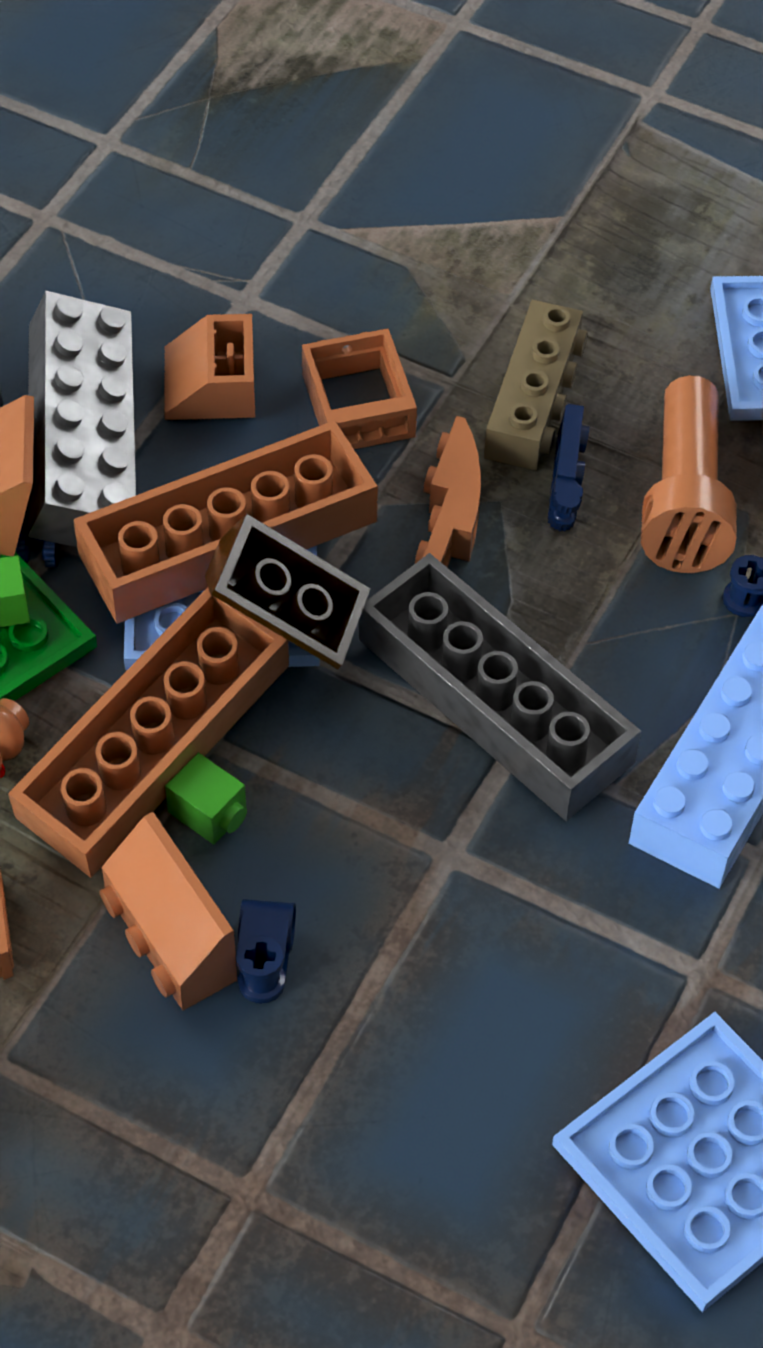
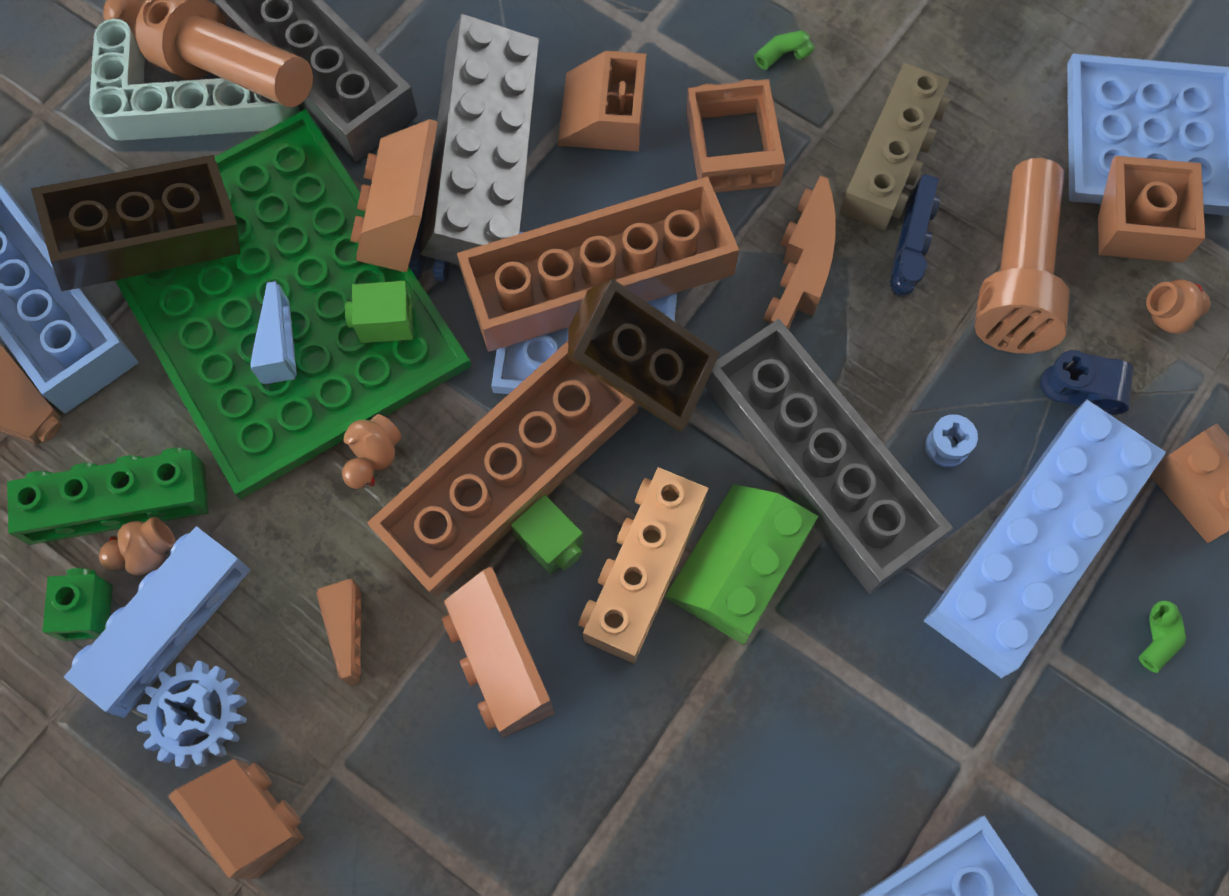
camera: 10 degrees right, 15 degrees up
(264, 948) = (582, 683): dark blue piece -> none
(317, 814) = (644, 565): none -> light nougat brick
(398, 298) = (780, 44): none -> bright green arm
(424, 801) = (741, 560): none -> bright green slope
(623, 669) = (941, 446): none -> light blue wheel

